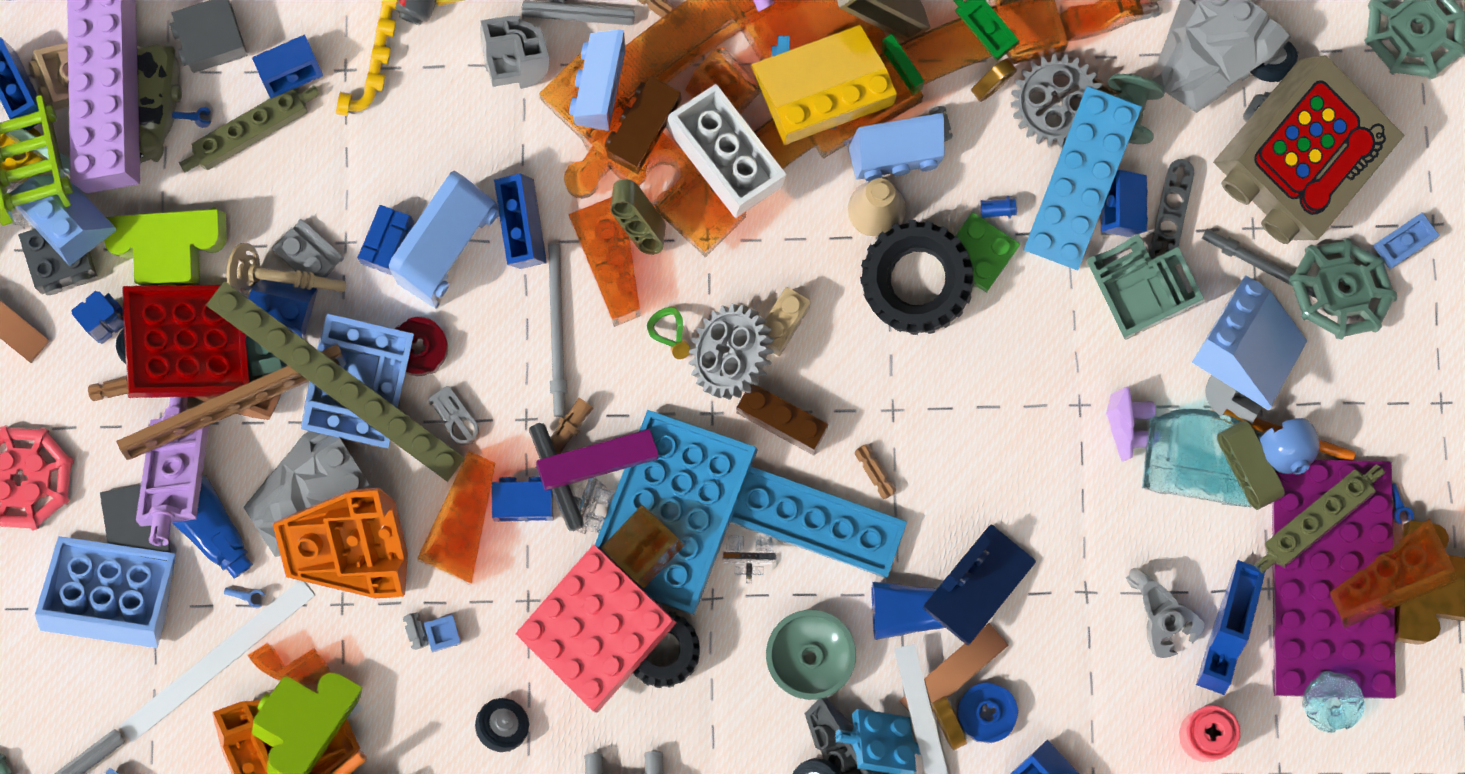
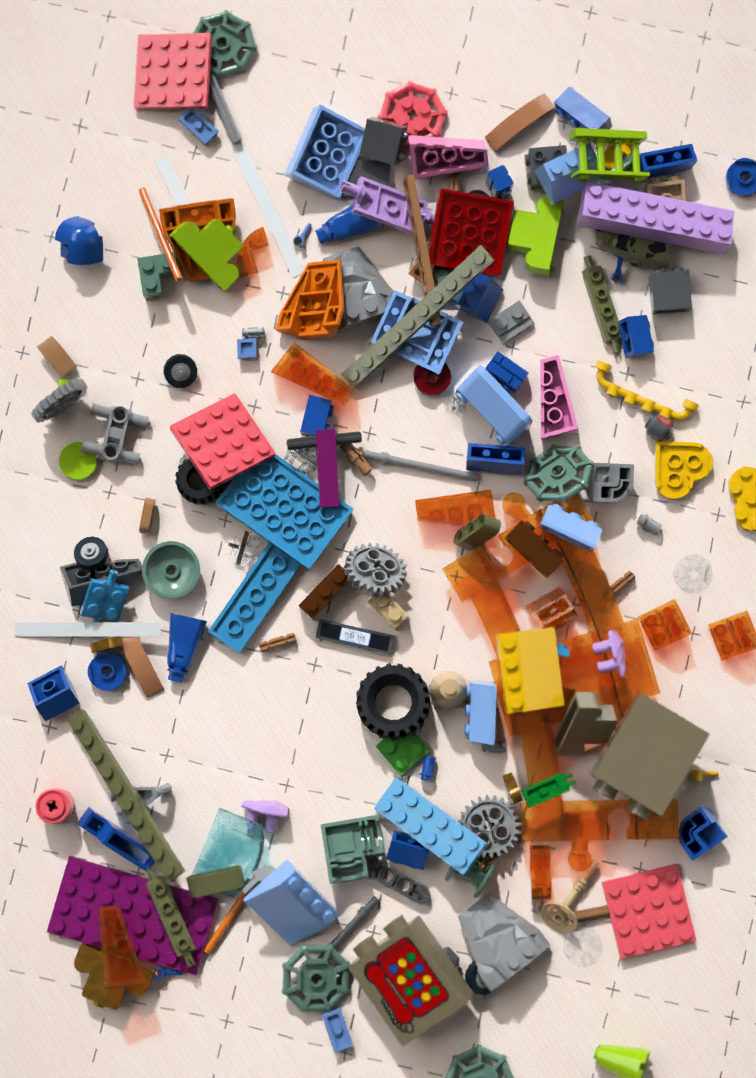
camera: 105 degrees right, 5 degrees up
(71, 505) = (384, 141): none -> dark grey brick
(73, 408) = (445, 155): none -> bright pink wedge
(254, 273) = (503, 284): tan dish -> none
(414, 156) = (556, 405): none -> bright pink wedge
(452, 412) = (385, 387): light grey piece -> none
(455, 301) = (455, 406): none -> clear wheel
(534, 119) = (550, 462): none -> sand green plate
(578, 12) = (628, 531): light grey axle -> none
(643, 546) = (264, 481): clear orange slope -> none
(679, 348) = (388, 539): bright green piece -> none
(725, 151) = (503, 597): white brick -> none
(737, 715) = (147, 516): none -> medium nougat beam
(835, 361) = (355, 636): none -> tile
(902, 64) = (532, 727): green tile -> none
(979, 584) = (186, 687): dark blue bracket -> none
(1165, 628) = (126, 796): none -> olive plate
(1291, 447) = (218, 910): medium blue cylinder -> none
(1338, 717) = (62, 893): clear light blue plate -> none

